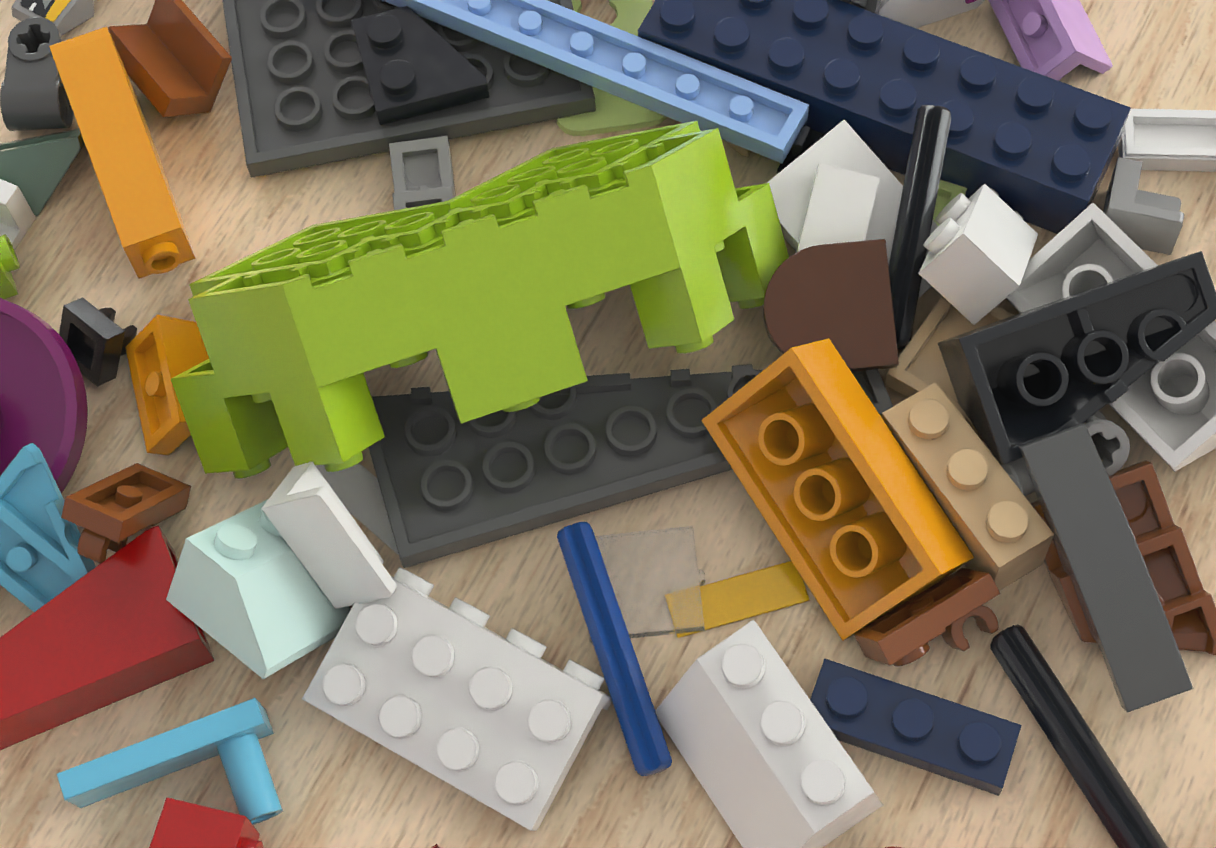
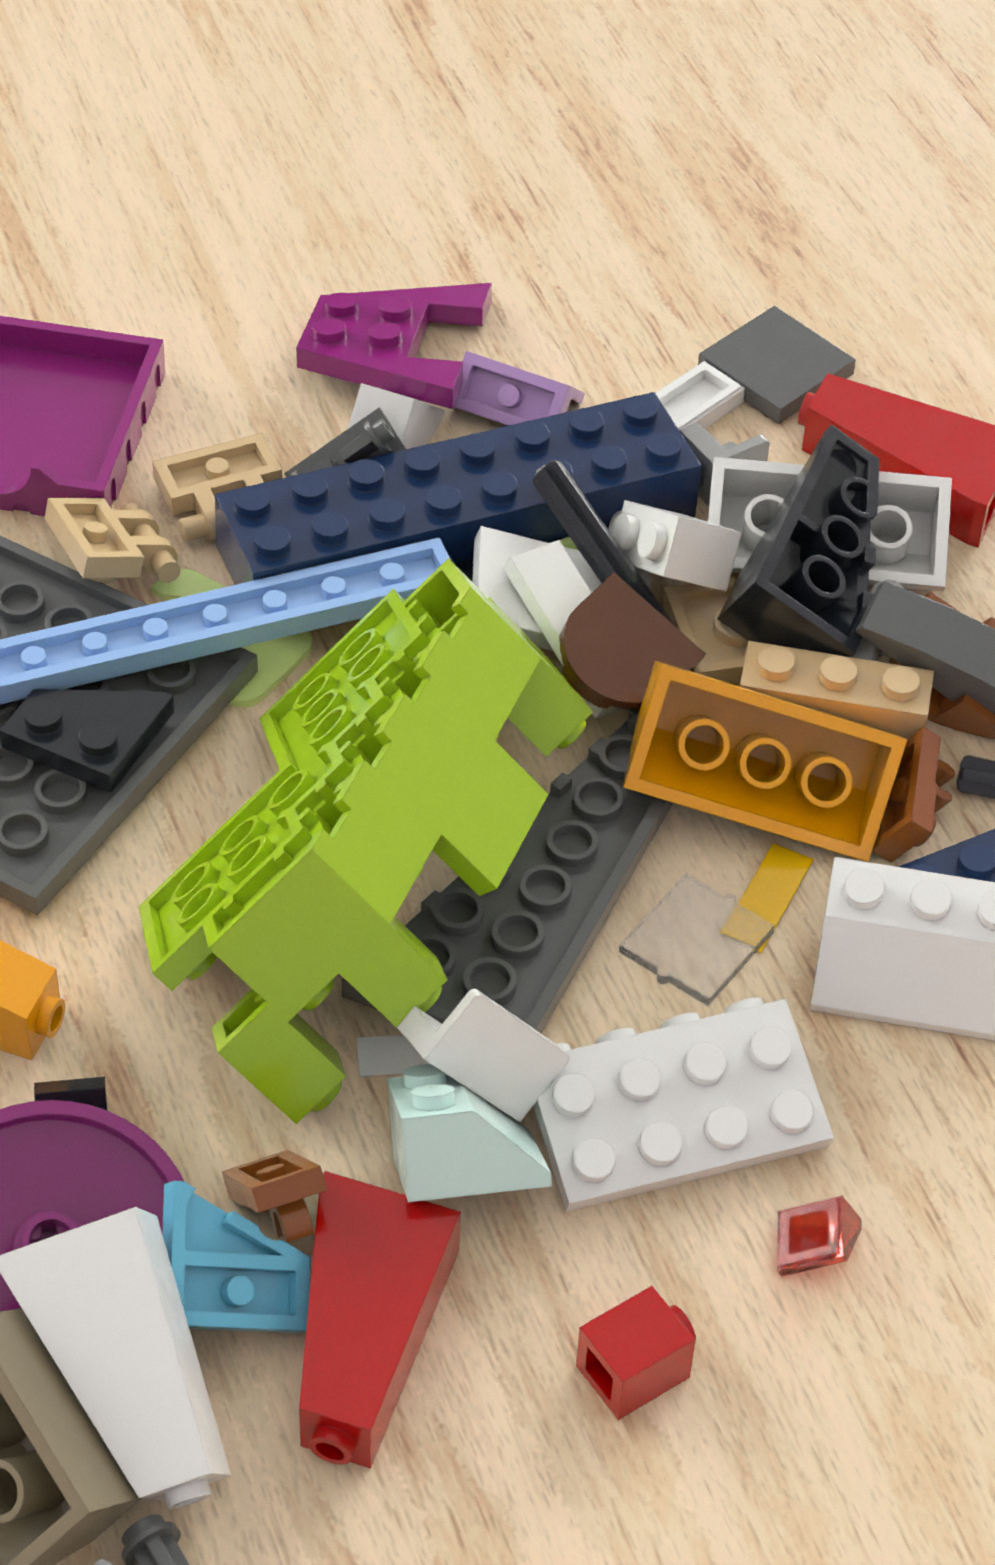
camera: 55 degrees left, 15 degrees down
(154, 357) = (179, 1093): light orange panel -> none
(227, 733) = (554, 1266): medium azure piece -> none
(421, 172) = (183, 809): light grey slope -> none
(614, 649) = (736, 980): blue axle -> none

